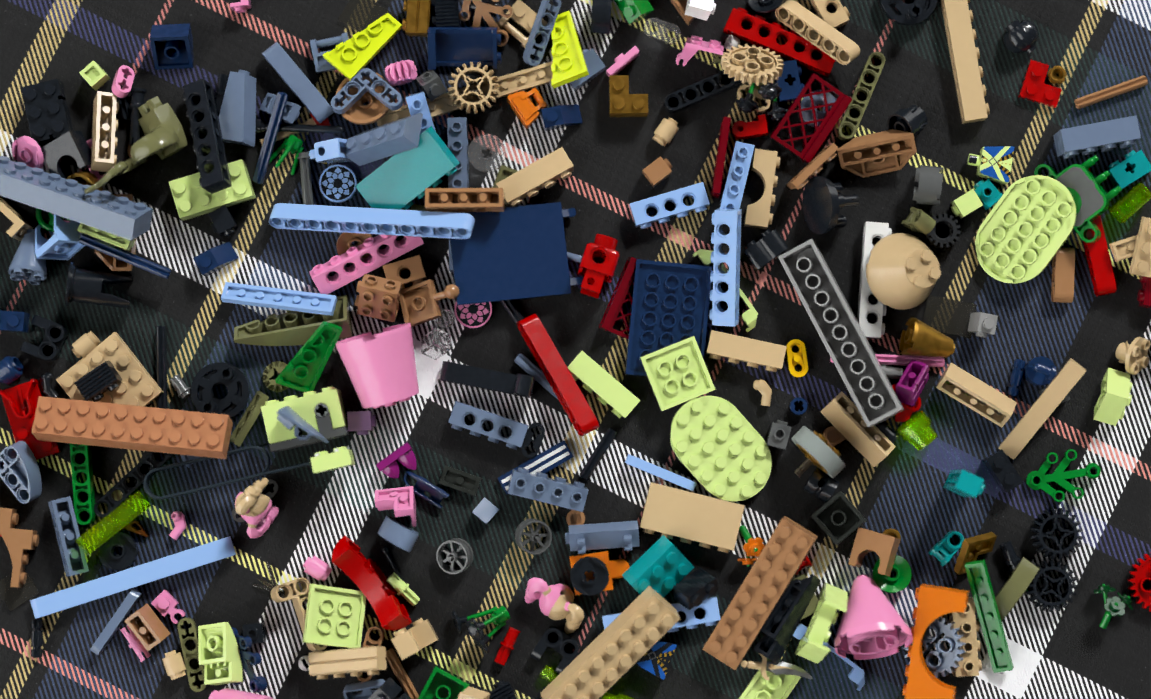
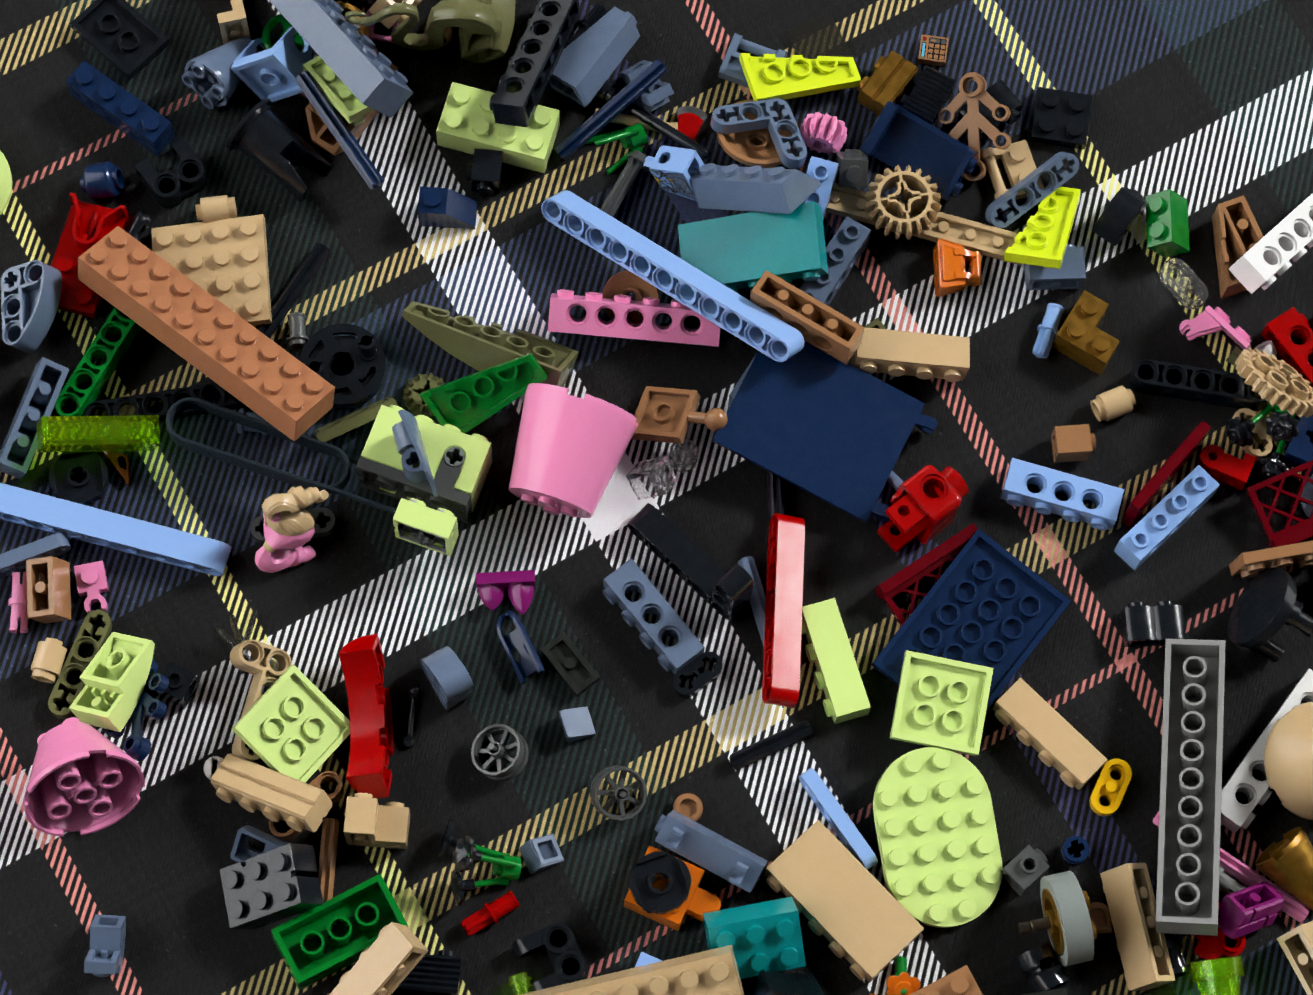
camera: 25 degrees right, 15 degrees down
(99, 381) = (203, 256): black brick -> none
(180, 524) = (179, 494): bright pink arm -> none
(279, 298) = (493, 300): light blue plate -> none
(298, 82) = (688, 70): sand blue beam -> none
(317, 568) = (312, 657): bright pink brick -> none
(338, 183) = (657, 215): tile -> none
(361, 422) = (492, 512): lavender brick -> none
(378, 297) = (618, 372): medium nougat brick -> none
(399, 499) = (472, 635): bright pink panel -> none
(403, 589) = (404, 753): yellowish green axle -> none
(416, 268) = (659, 356): medium nougat brick -> none
(473, 314) = (725, 470): tile -> none
(482, 143) = (865, 308): clear plate -> none
(513, 594) = (541, 853): none -> sand blue slope
(541, 463) = (678, 710): dark blue tile -> none
(548, 490) = (676, 745): sand blue brick -> none
(554, 604) = (591, 895): hair -> none
(561, 116) = (989, 305): dark blue slope -> none
(602, 110) = (1047, 330): none -> light blue axle
(622, 61) = (1113, 288): bright pink plate -> none
(732, 218) = (1057, 676): light blue brick -> none
(748, 316) = (1079, 694): yellowish green piece -> none
(763, 164) = (1171, 572): tan arch -> none
(765, 390) = (1043, 803): tan arm -> none

